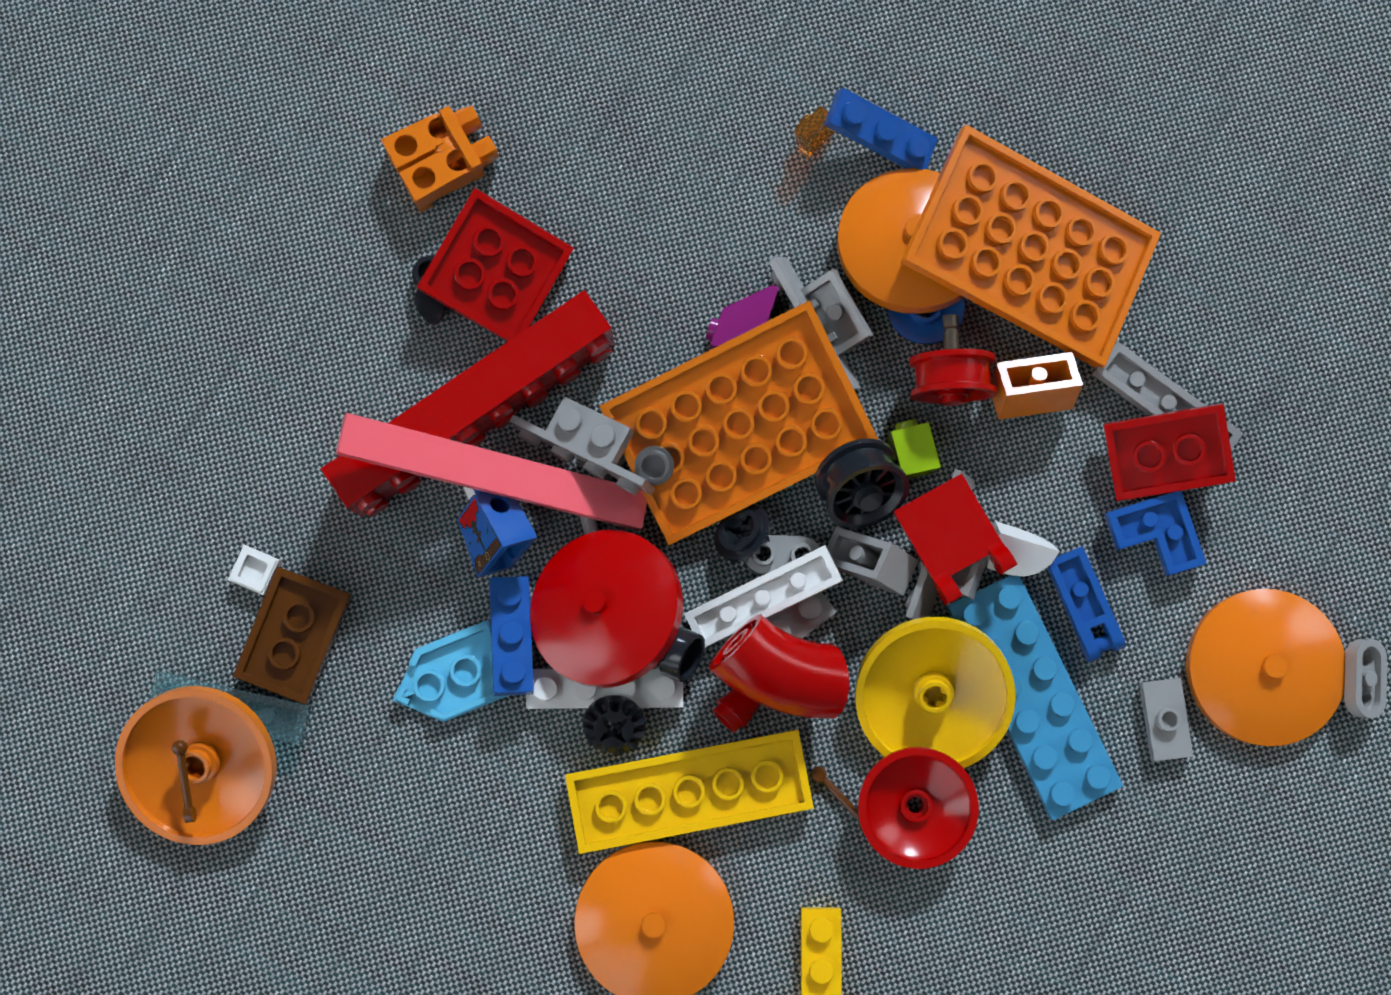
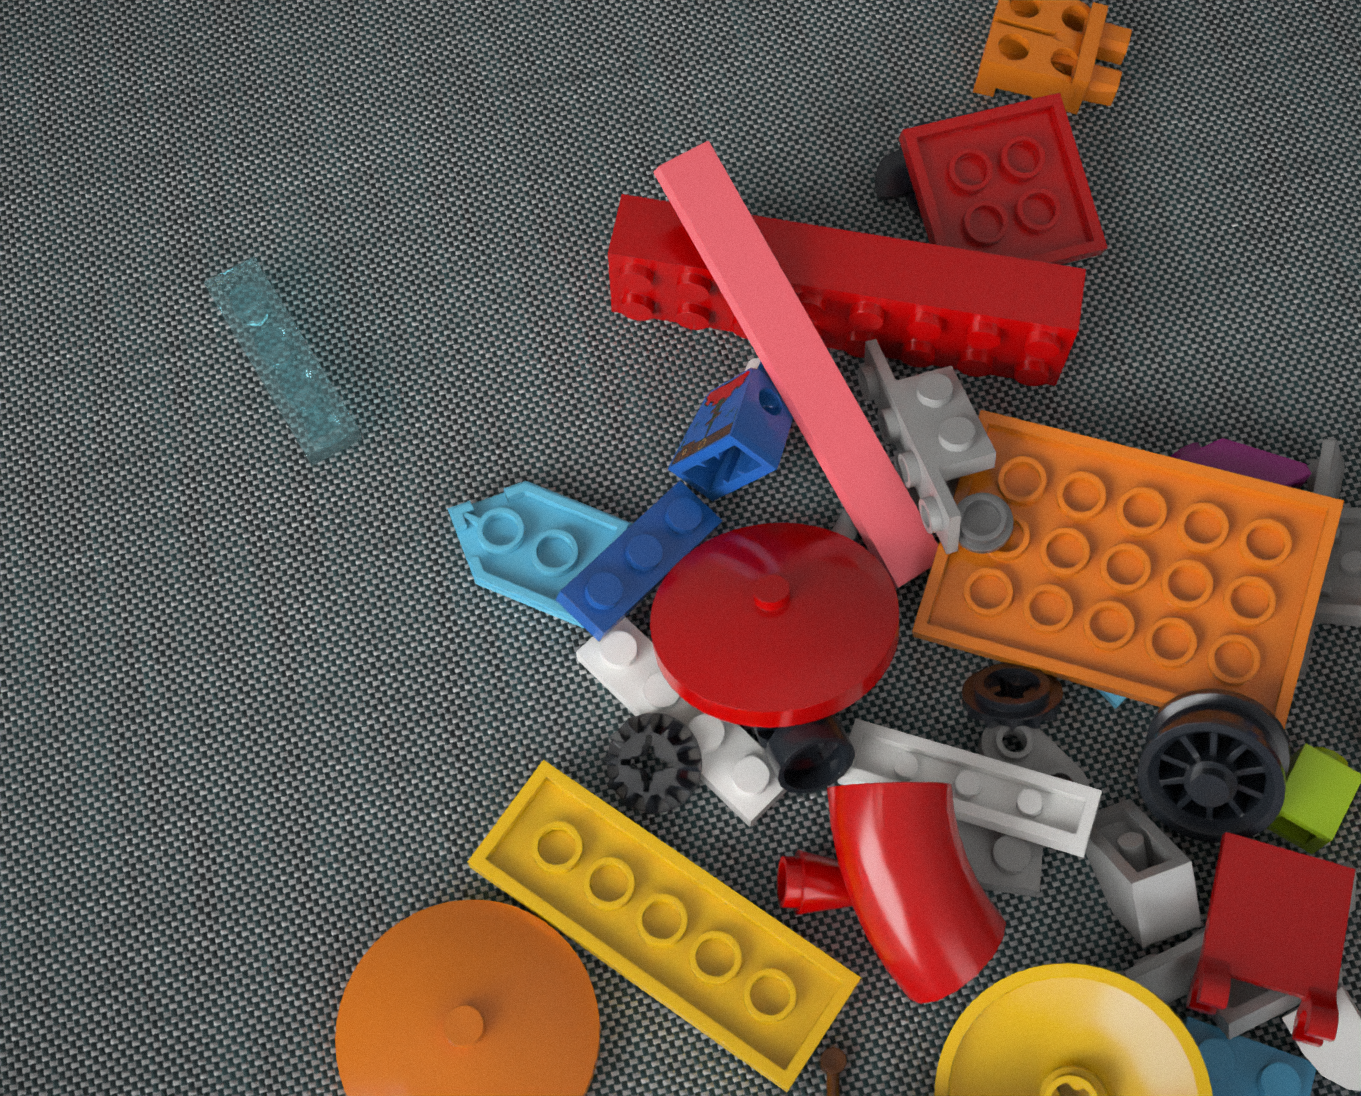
camera: 45 degrees right, 15 degrees down
(189, 812) = (128, 410): reddish brown hinge -> none
(226, 760) = (187, 375): orange dish -> none
(254, 570) = (452, 261): white tile -> none
(292, 635) = (419, 351): reddish brown plate -> none

